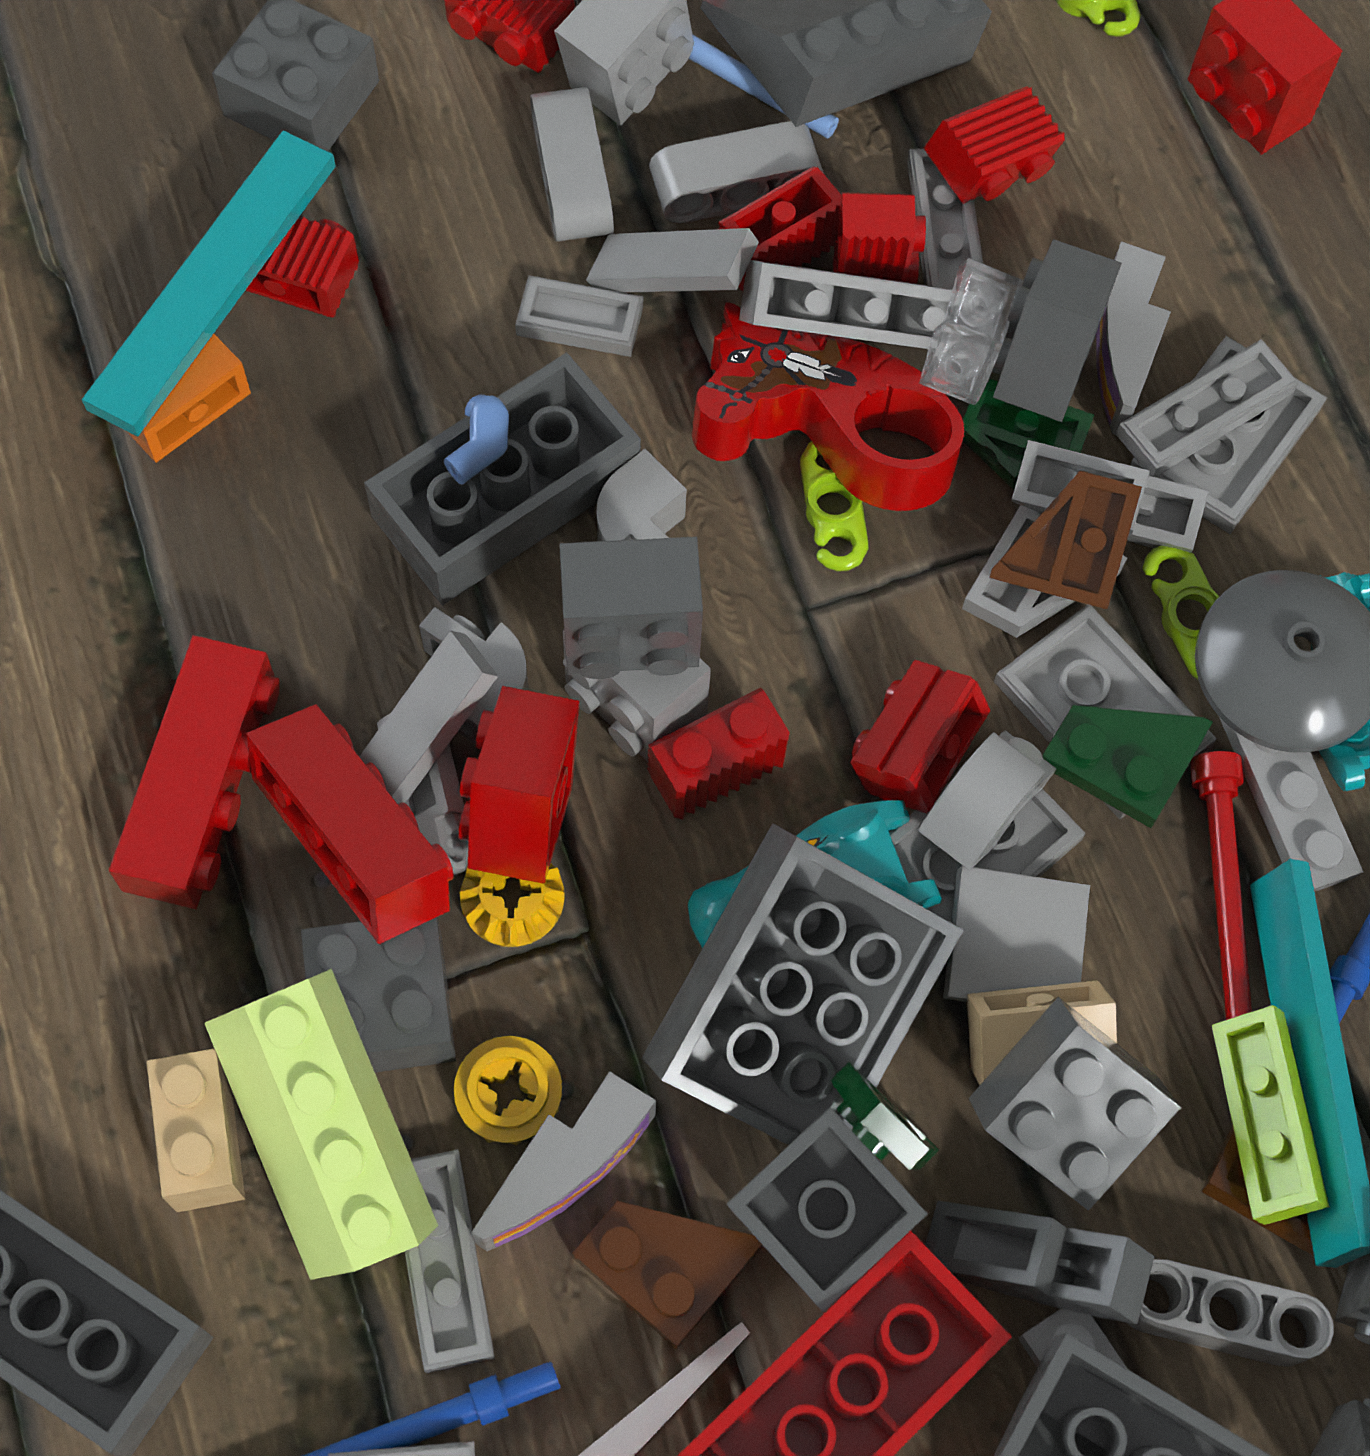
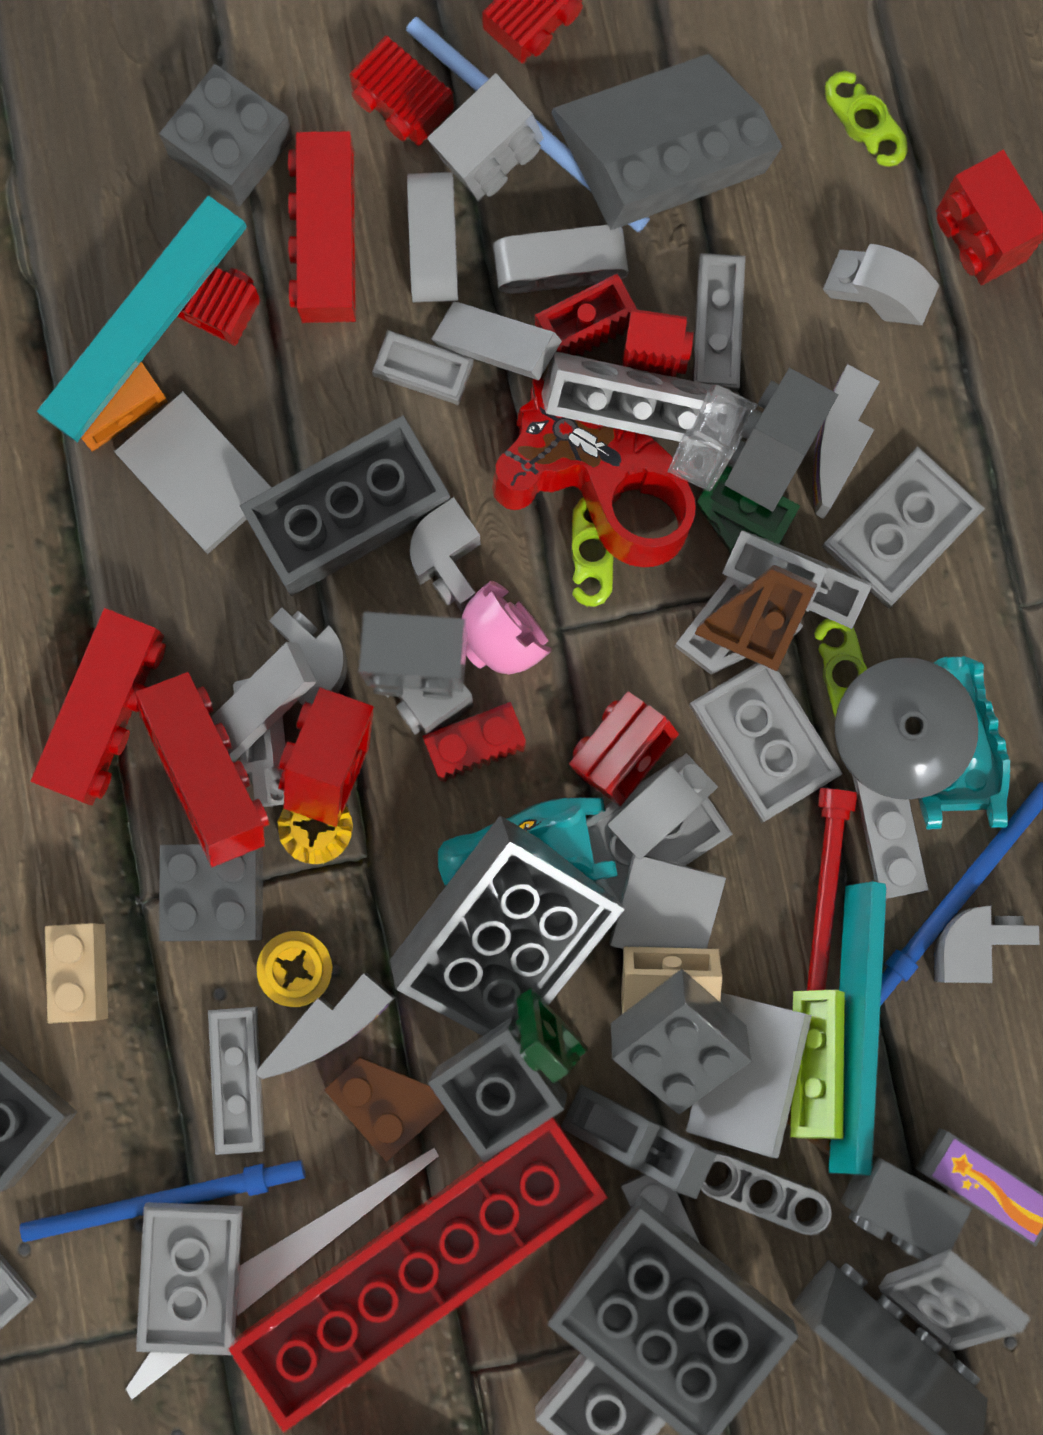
camera: 10 degrees right, 15 degrees up
(291, 469) = (193, 471): none -> light grey tile
(322, 1127) = (162, 988): yellowish green slope -> none
(434, 167) = (324, 227): none -> red brick
(487, 438) = (333, 483): medium blue arm -> none
(739, 612) = (502, 633): none -> bright pink cylinder
(995, 145) = (765, 264): red brick -> none
(1126, 756) = (772, 782): dark green wing -> none
(1151, 146) = (885, 279): none -> light grey brick
(1190, 1177) = (756, 1101): none -> light grey tile
(1206, 408) = (888, 509): light grey tile -> none

